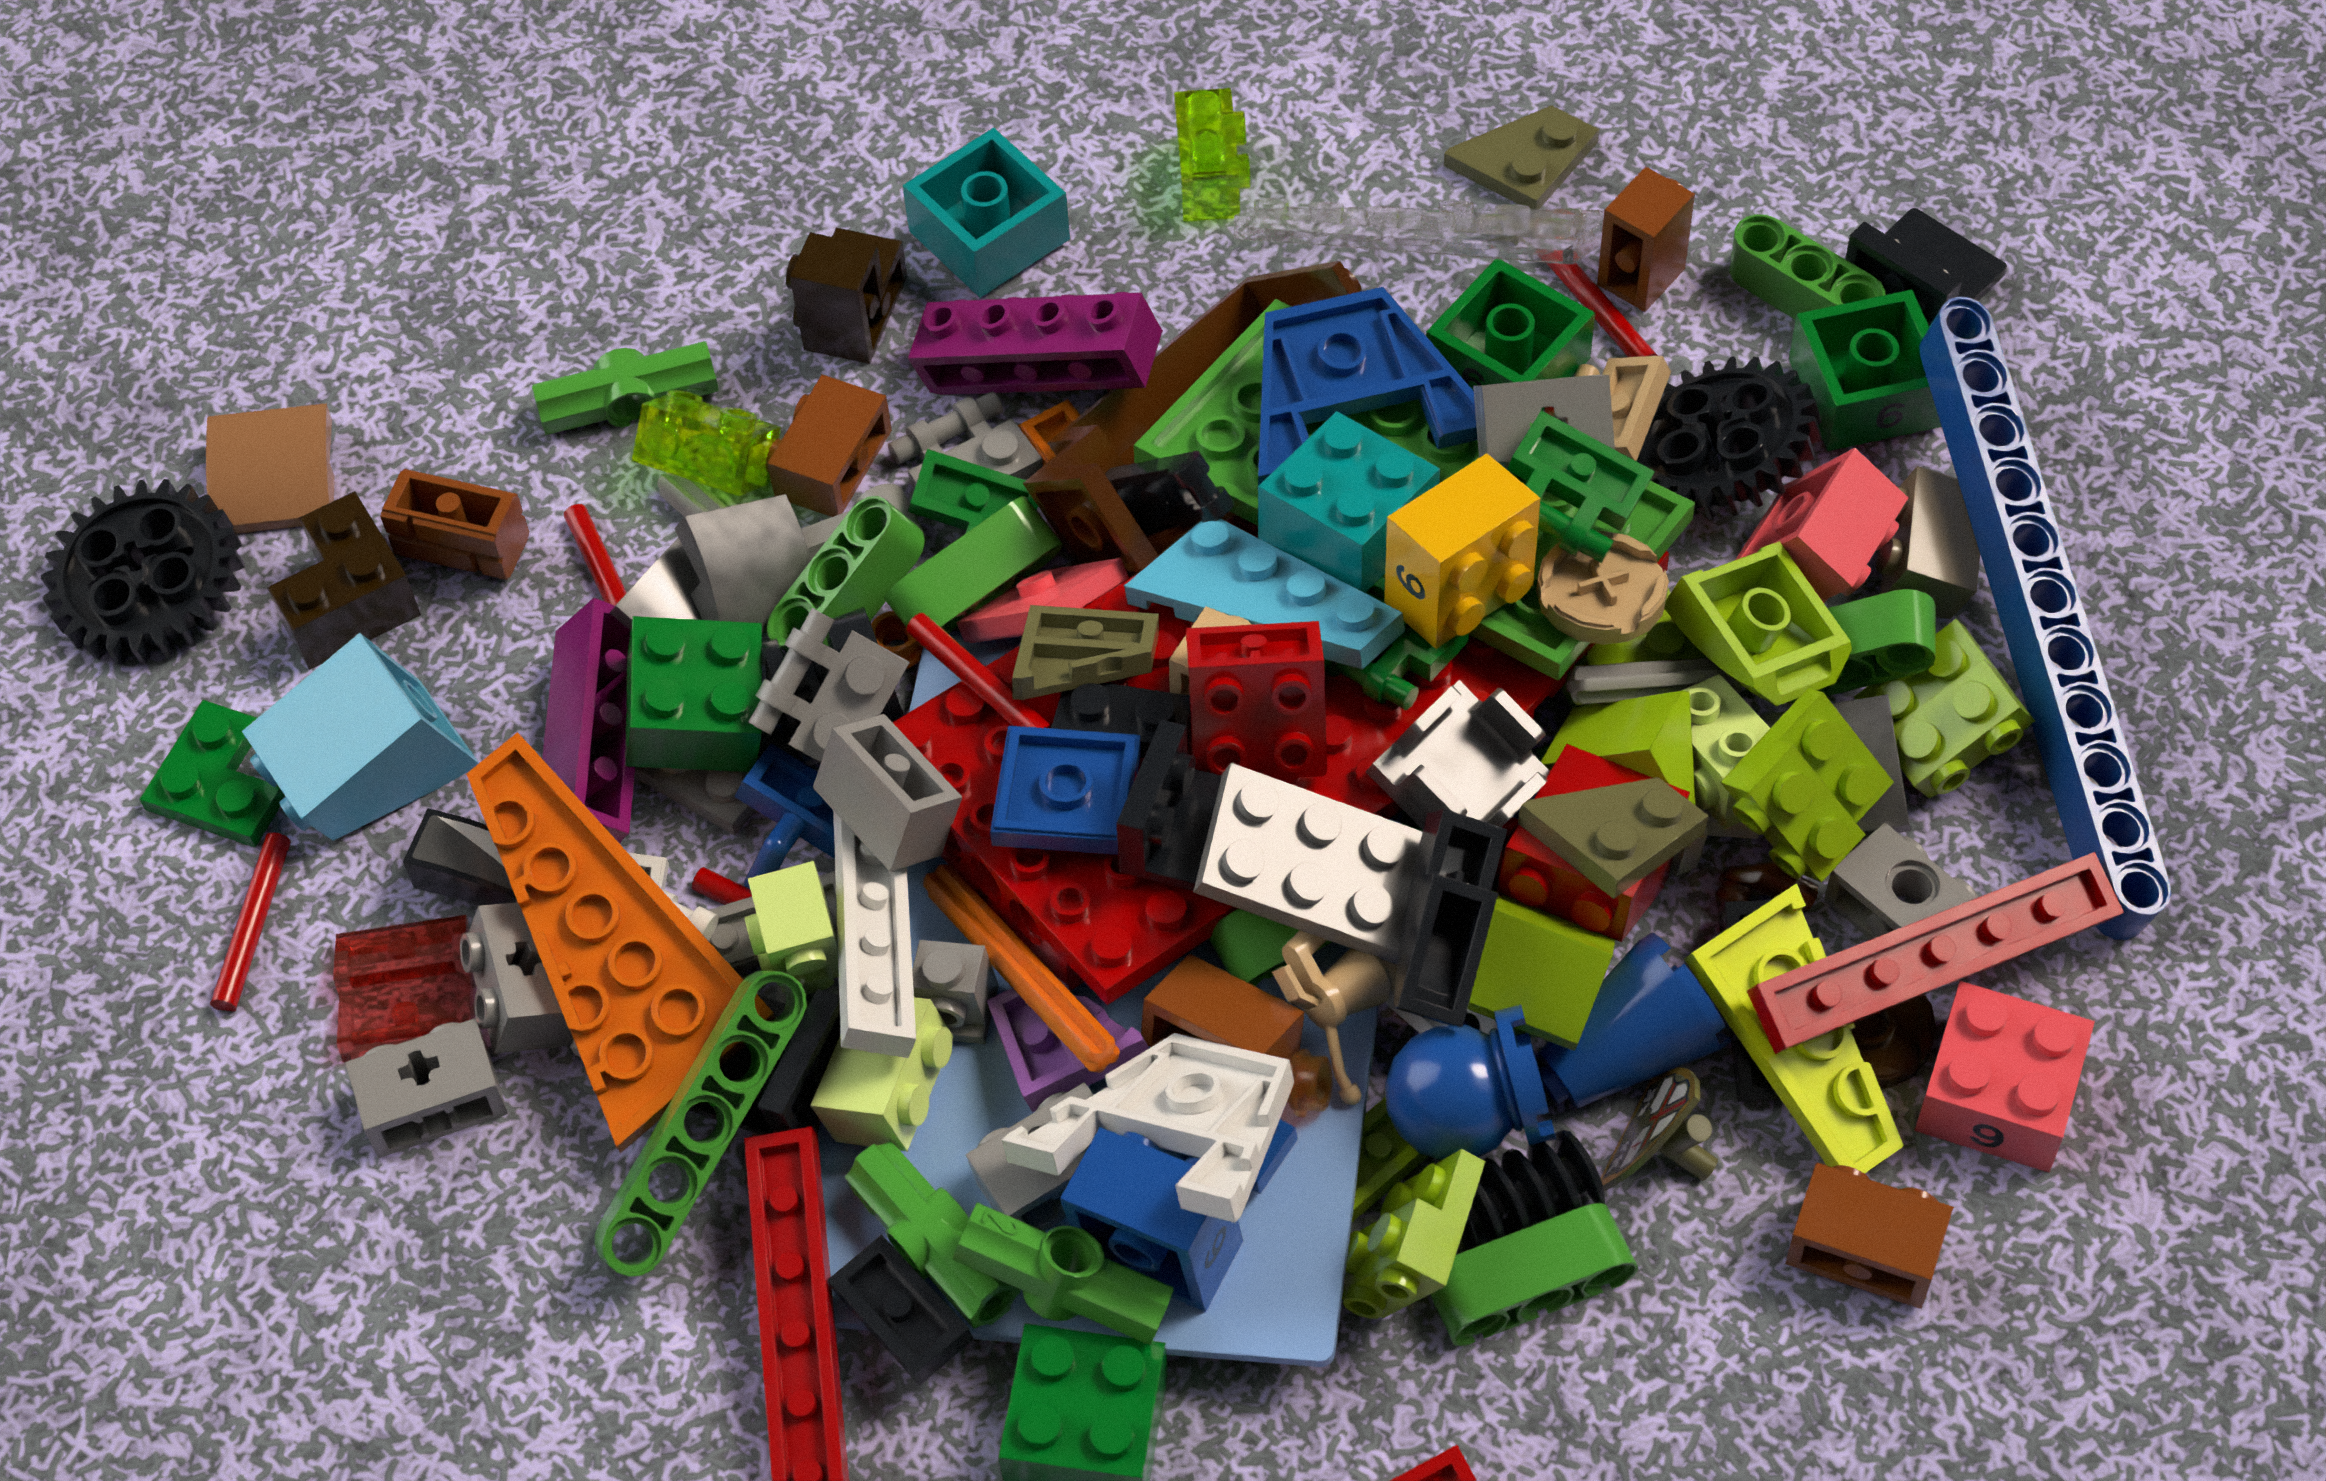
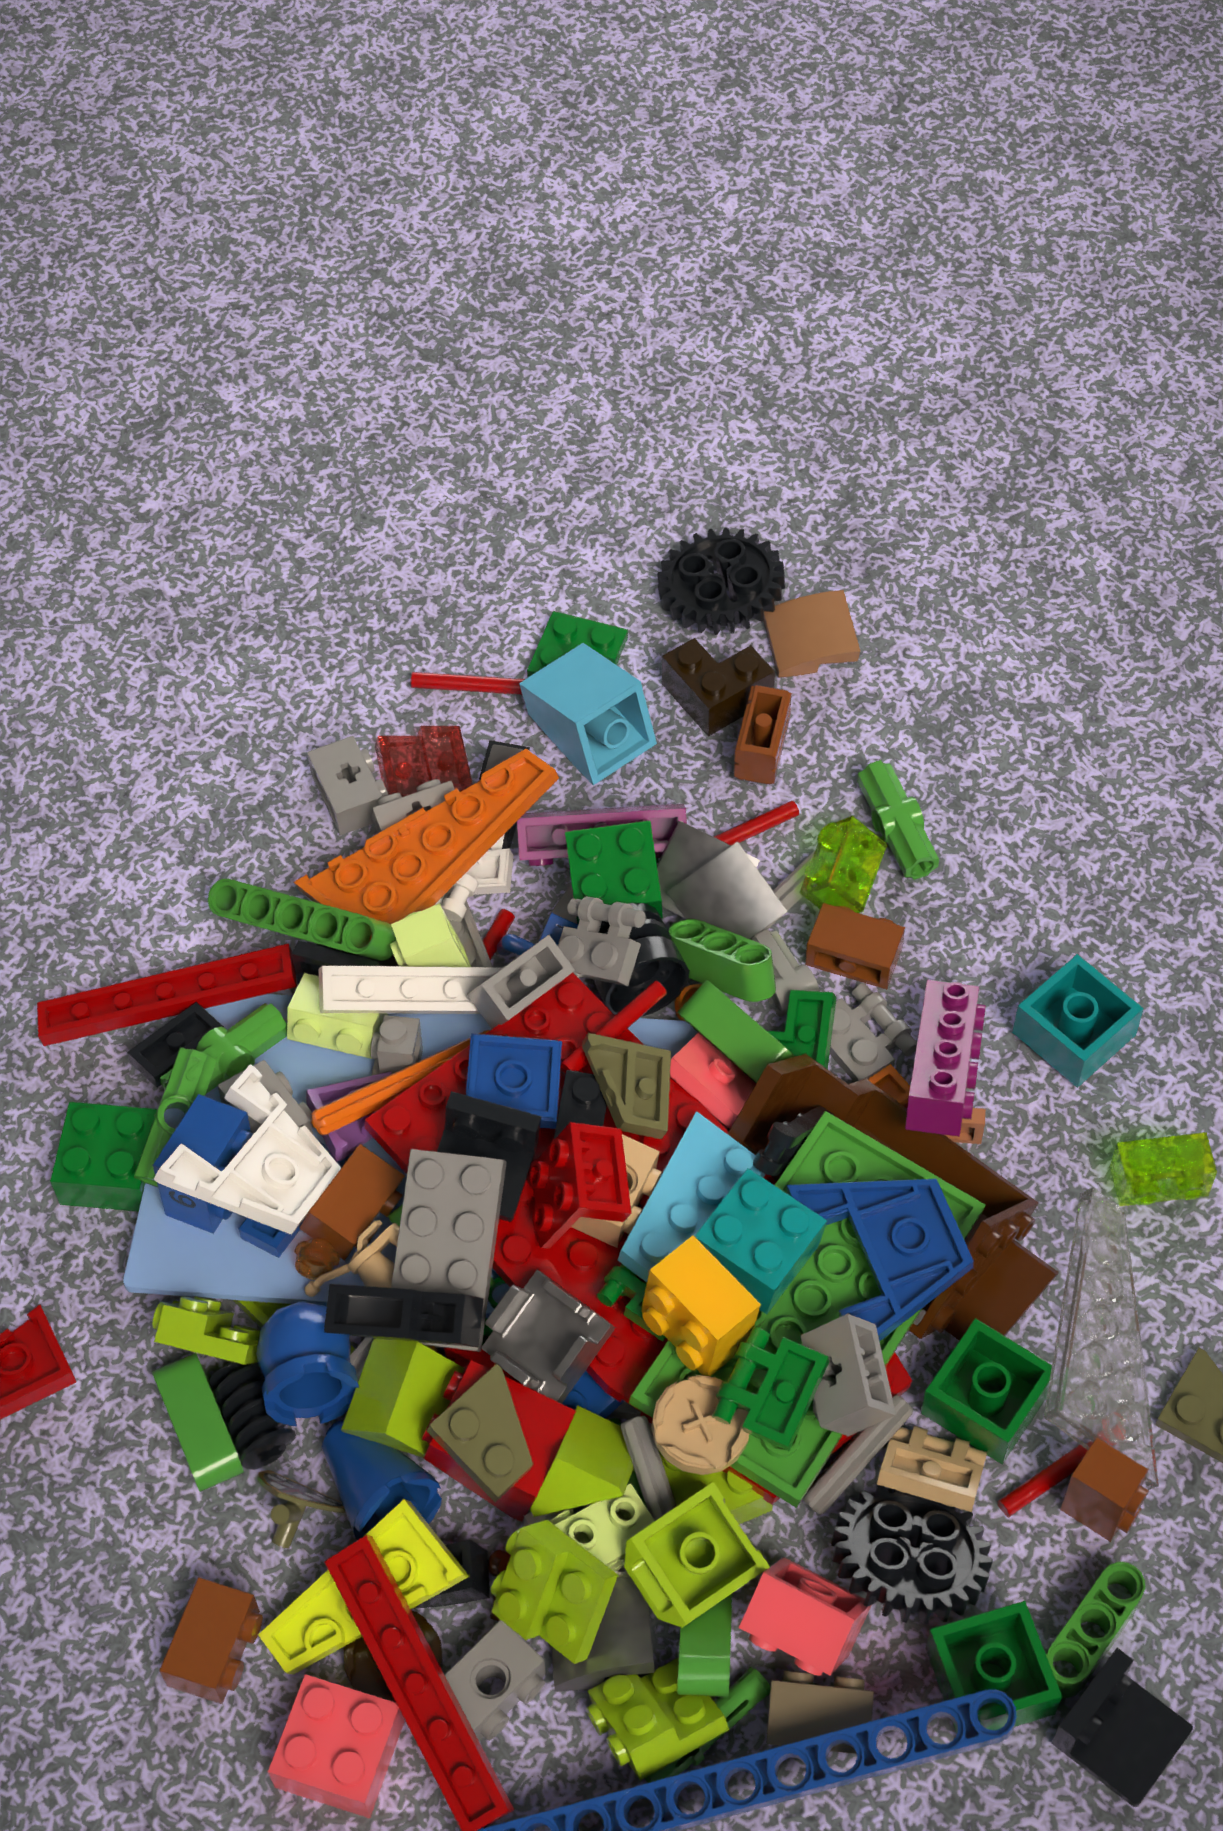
camera: 85 degrees right, 0 degrees up
(845, 291) = (992, 943): dark brown brick -> none

